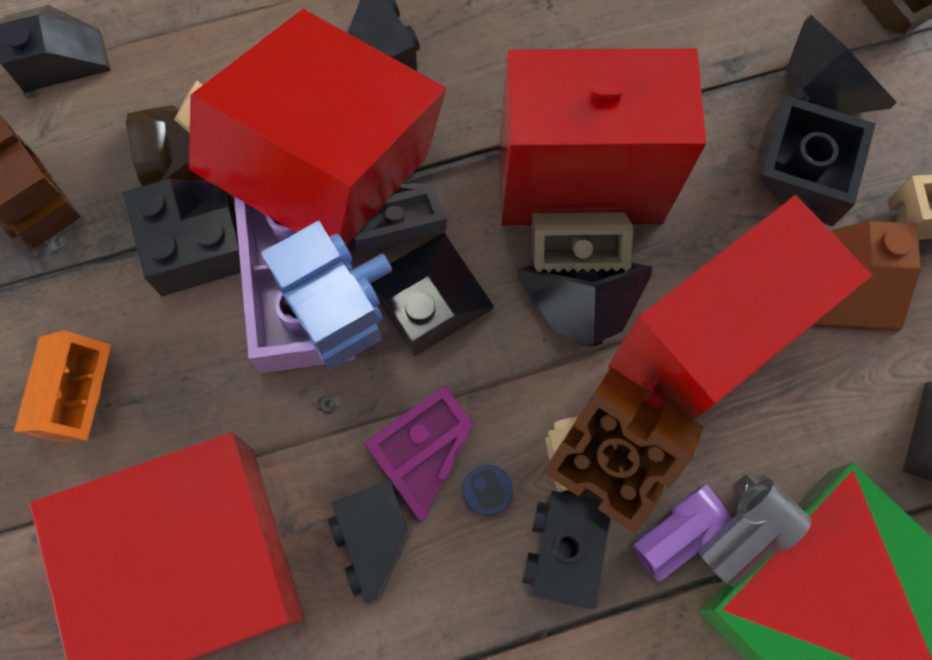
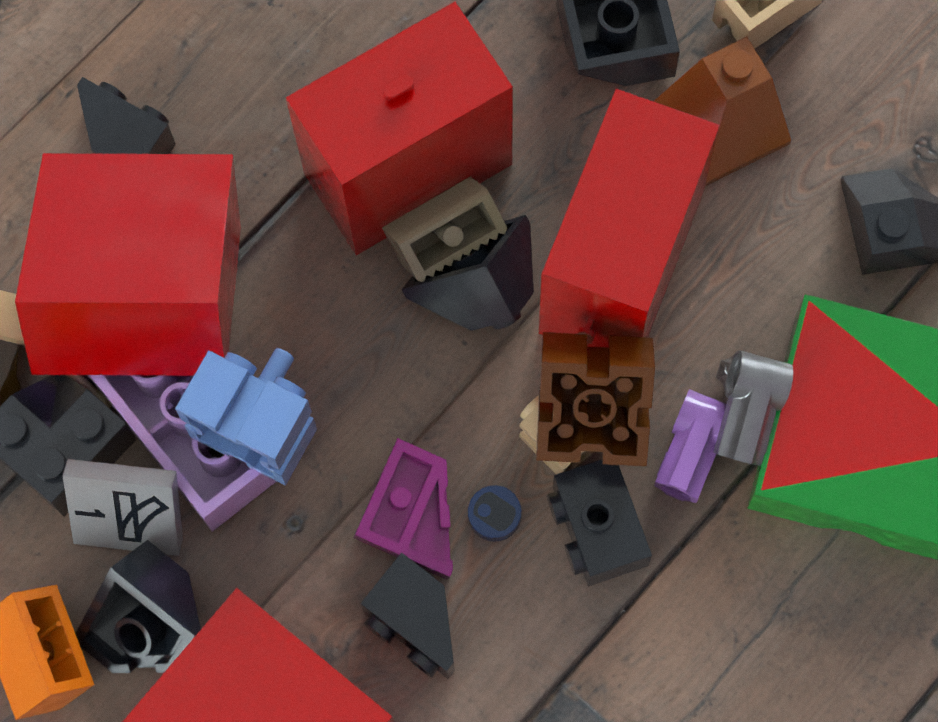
camera: 25 degrees left, 0 degrees up
(162, 402) = (140, 613): none -> black slope
(198, 312) = (123, 506): none -> light grey tile
(405, 216) = (261, 298): dark grey wing -> none
(430, 294) = (334, 359): black slope -> none

